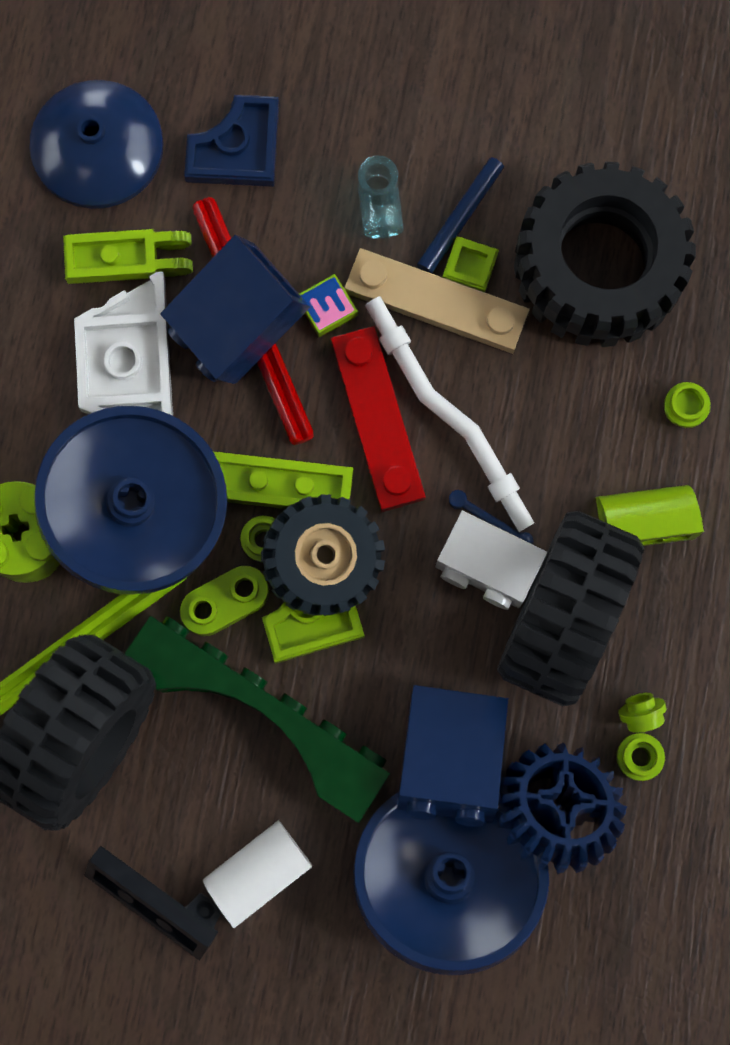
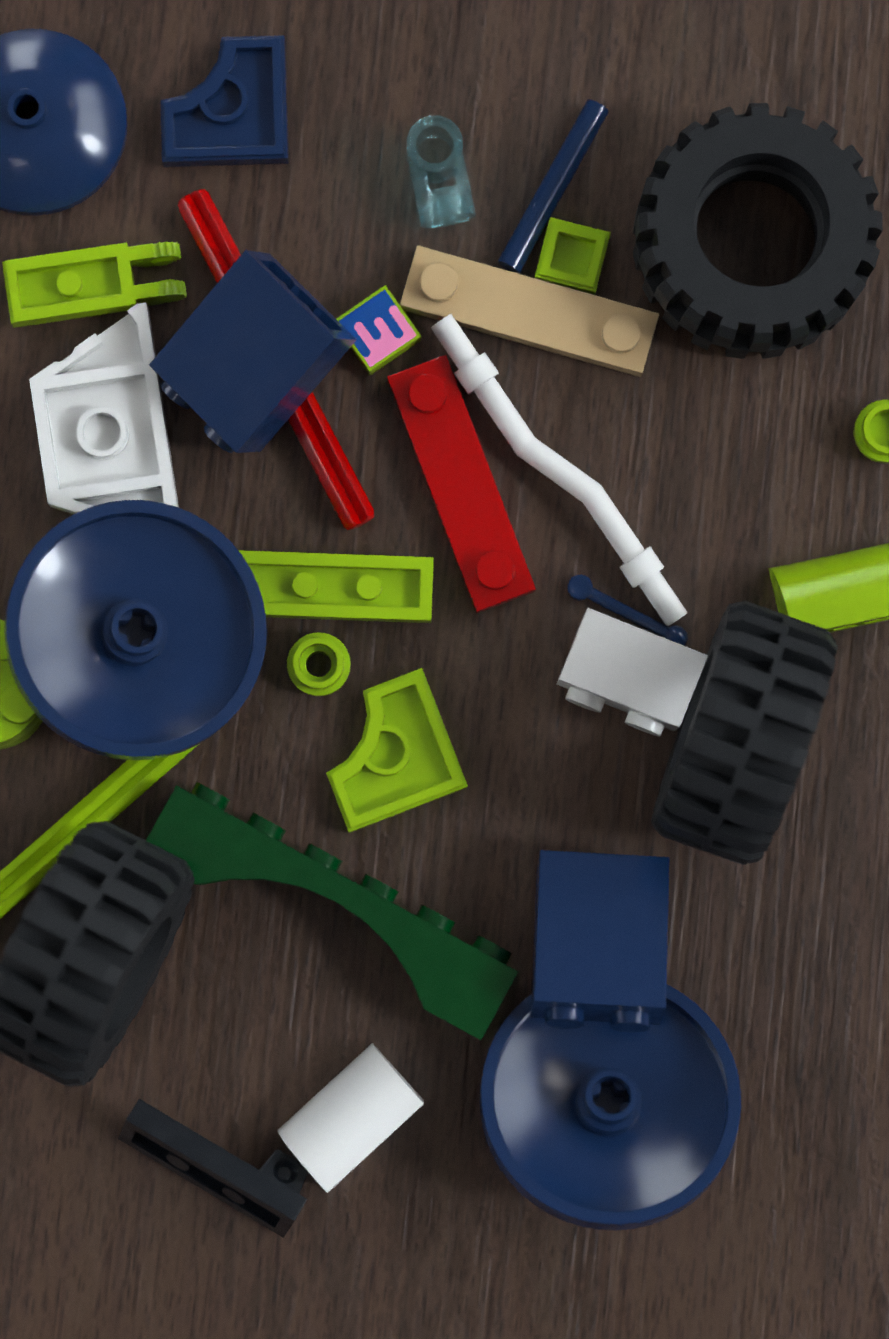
camera: 10 degrees left, 5 degrees up
(225, 602) = (274, 756): lime plate -> none
(322, 555) = (403, 685): black wheel -> none
(579, 790) = (796, 990): dark blue gear -> none
(643, 712) = (852, 860): lime plate -> none
(655, 754) = (872, 925): lime plate -> none

